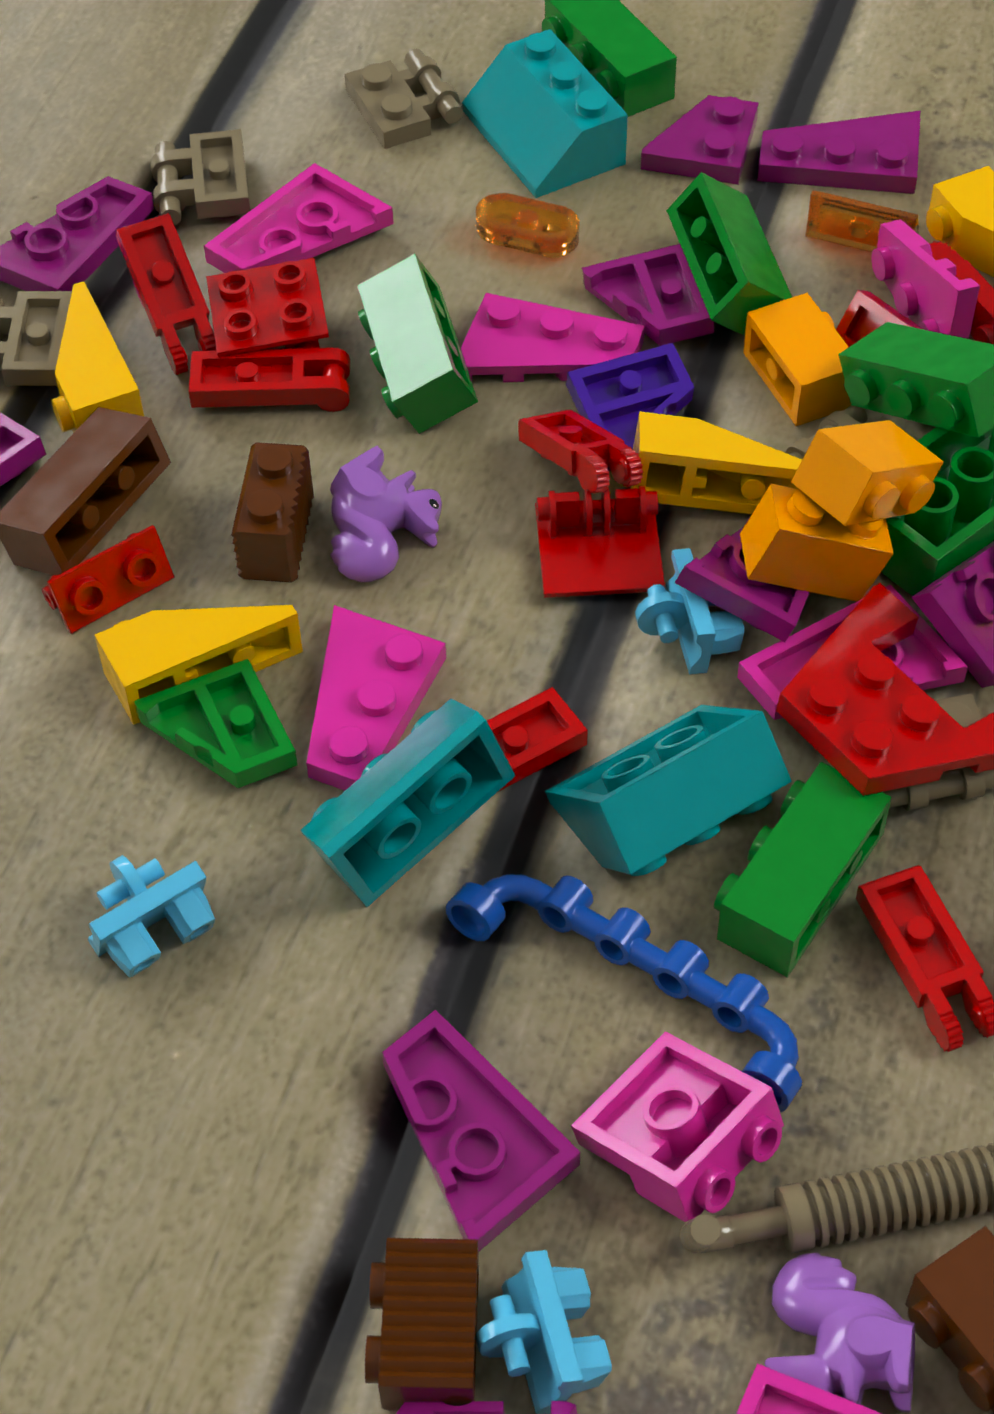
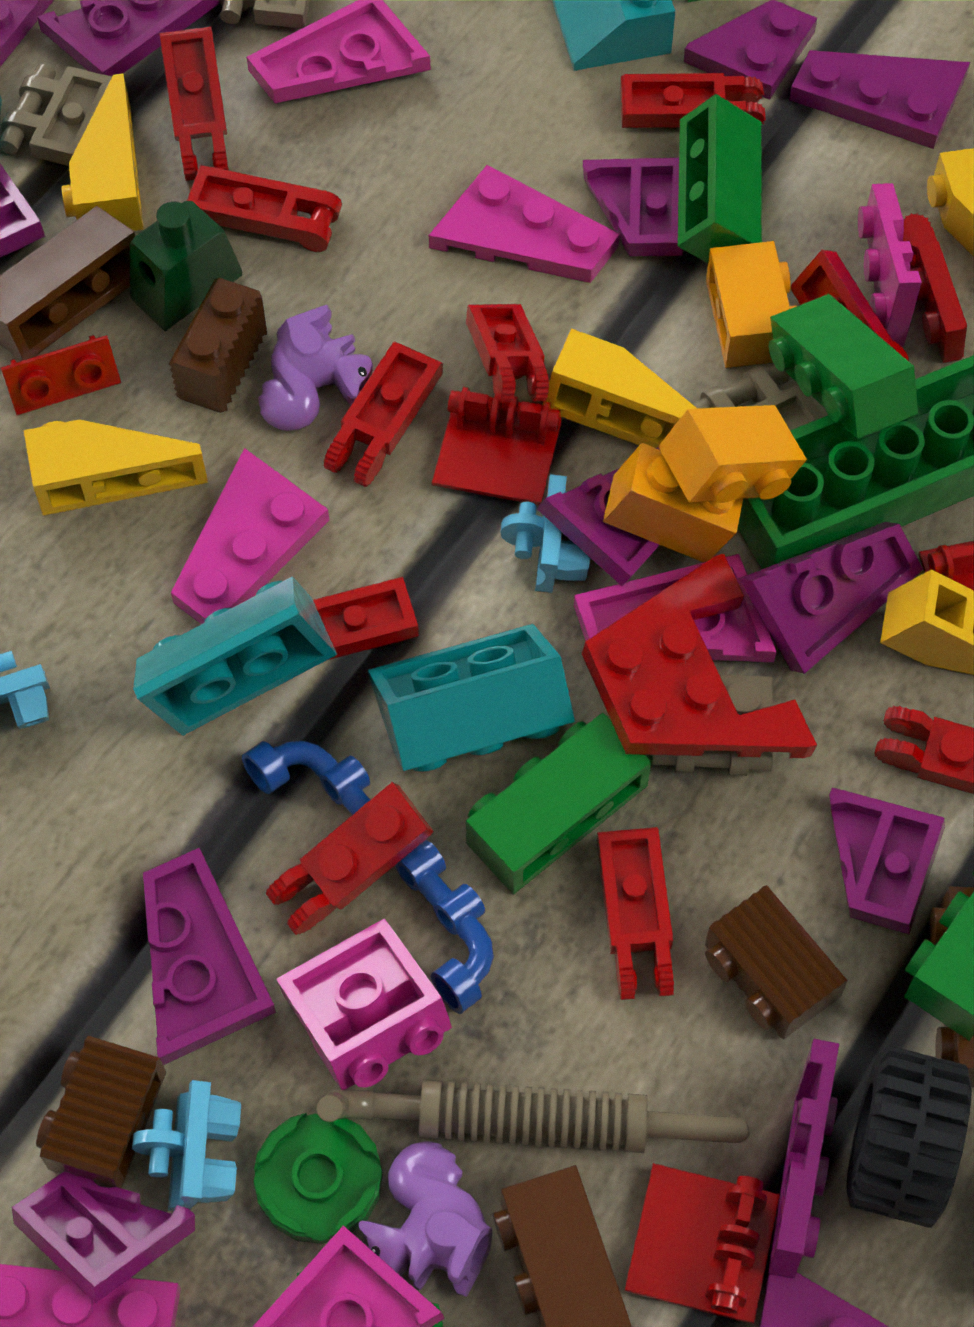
camera: 15 degrees right, 10 degrees up
(203, 442) = (178, 262): none -> dark green torso
(222, 724) = (113, 537): green wing -> none
(267, 308) = (280, 136): red hinge -> none
(415, 345) = (400, 206): brick -> none
(468, 536) = (384, 410): none -> red hinge
(527, 225) = (557, 105): clear orange plate -> none
(609, 975) = (352, 857): none -> red hinge
(621, 387) = (580, 297): dark purple wing -> none
(644, 198) = (667, 98): none -> red hinge
(693, 1329) = (317, 1177): none -> green tile
(851, 221) = (857, 172): clear orange slope -> none

